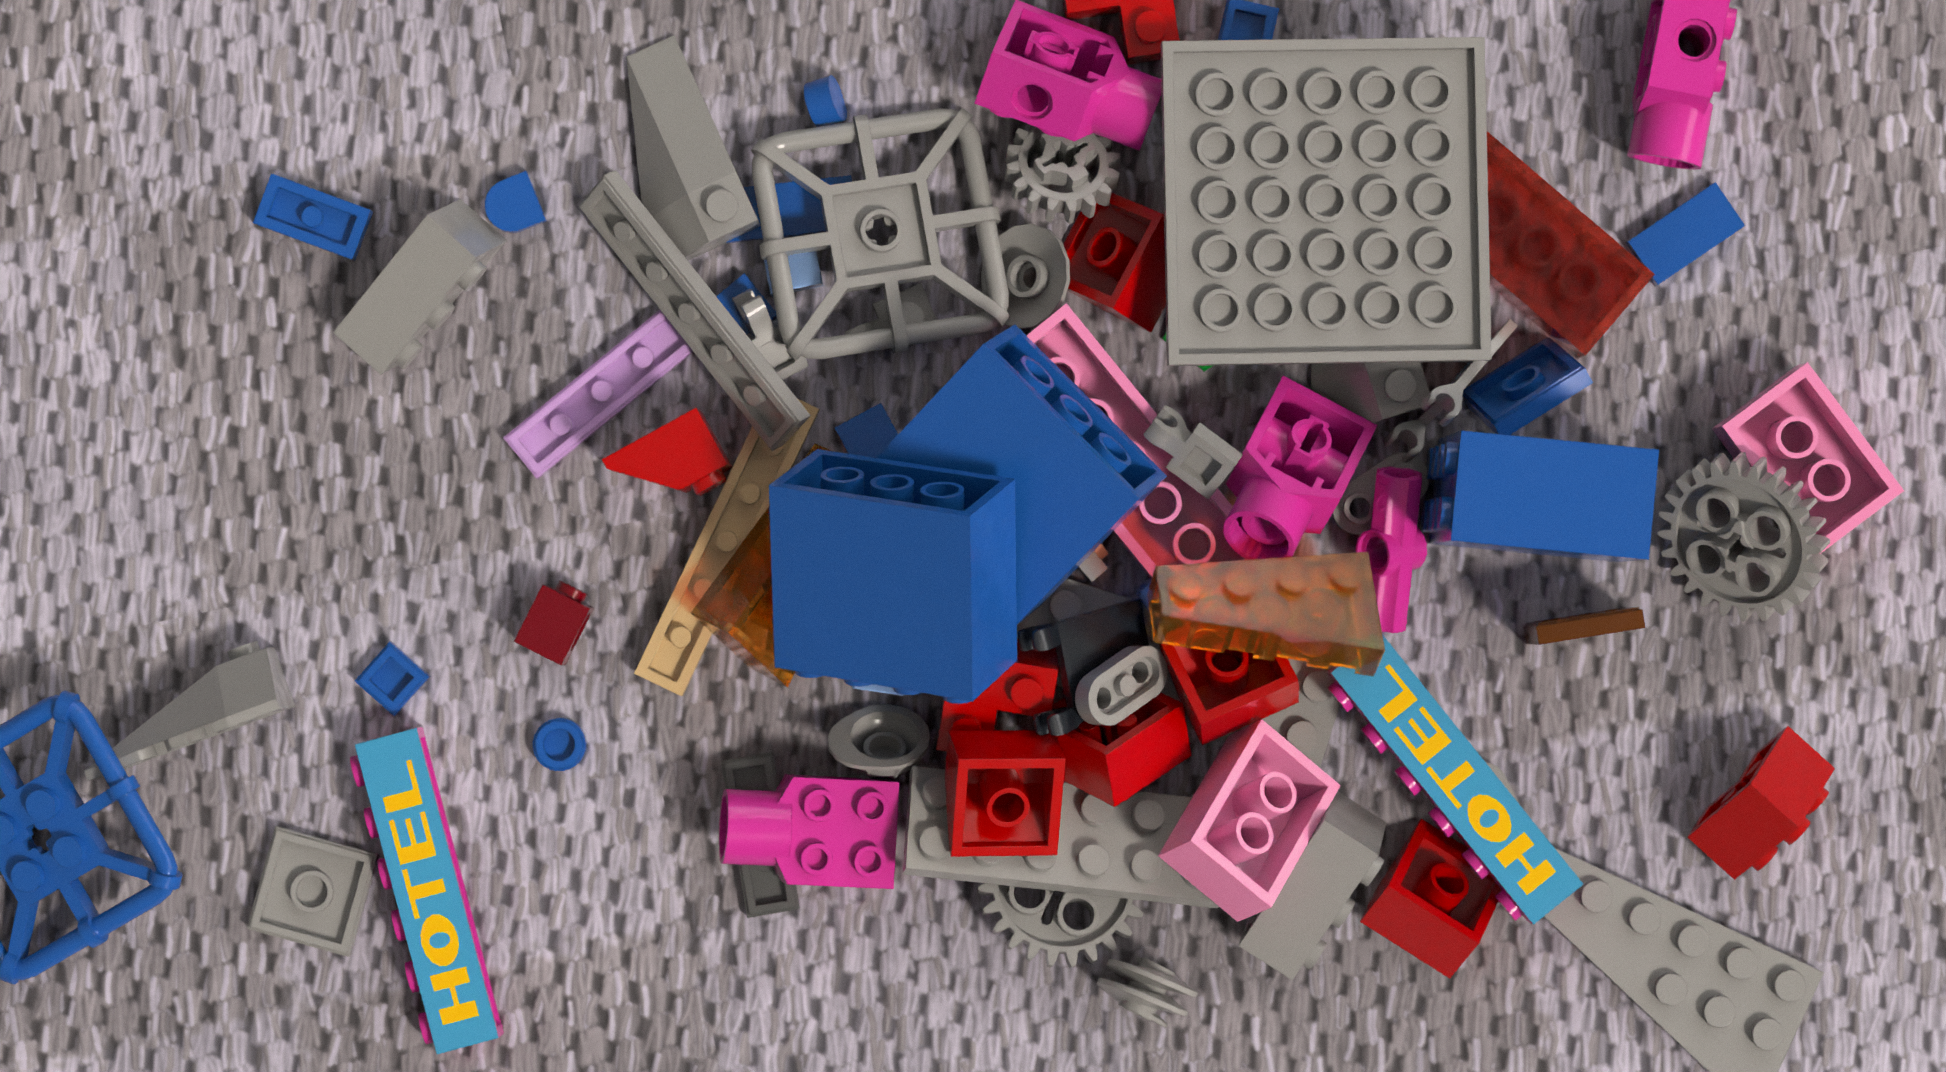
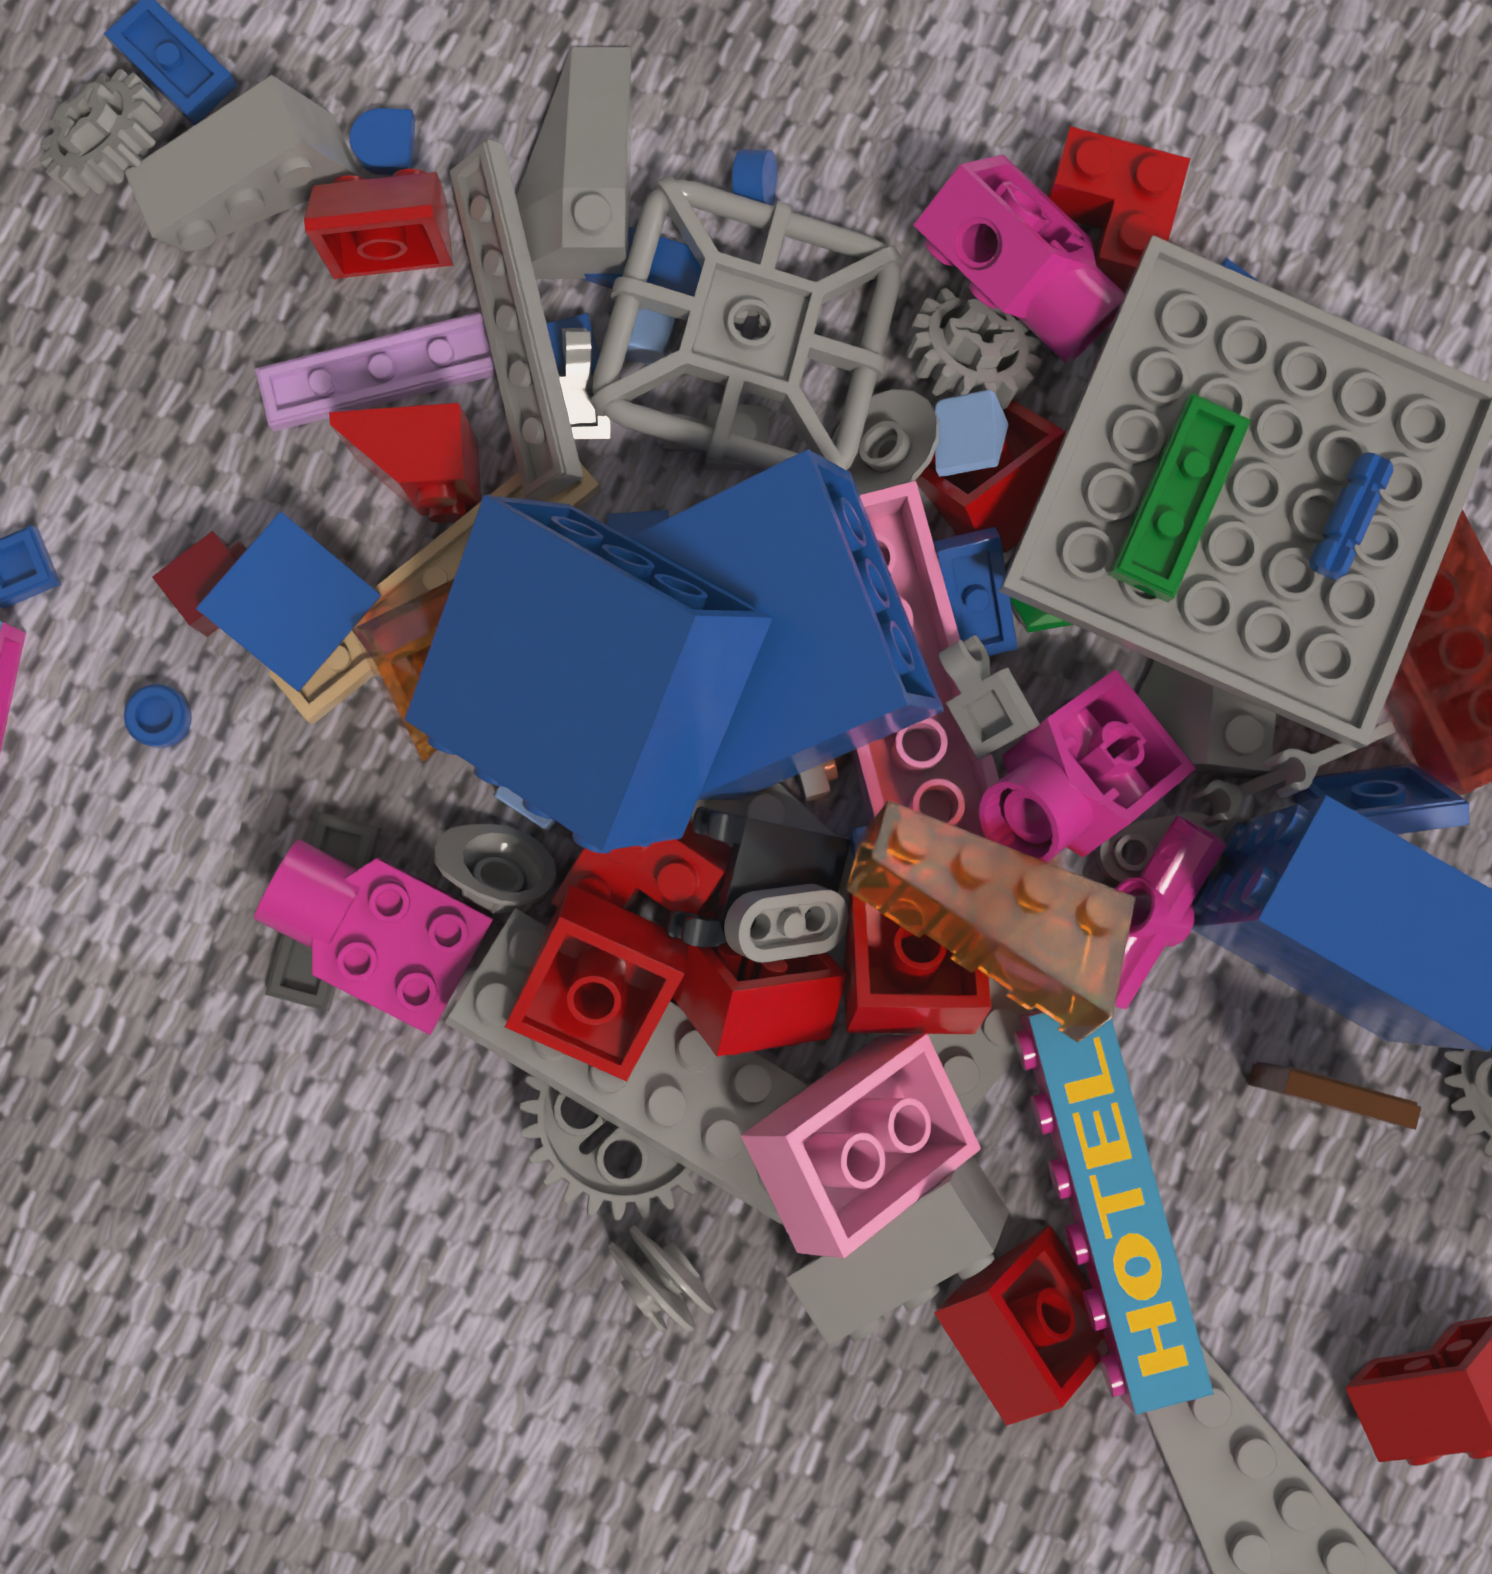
camera: 25 degrees right, 5 degrees down
(294, 307) = (101, 133): none -> light grey gear
(549, 276) = (380, 224): none -> red slope
(629, 613) = (289, 601): none -> blue tile
(1090, 243) = (969, 433): none -> light blue slope
(1142, 357) = (972, 576): none -> blue plate
(1270, 238) = (1179, 497): none -> green tile
(1404, 193) = (1351, 515): none -> blue axle

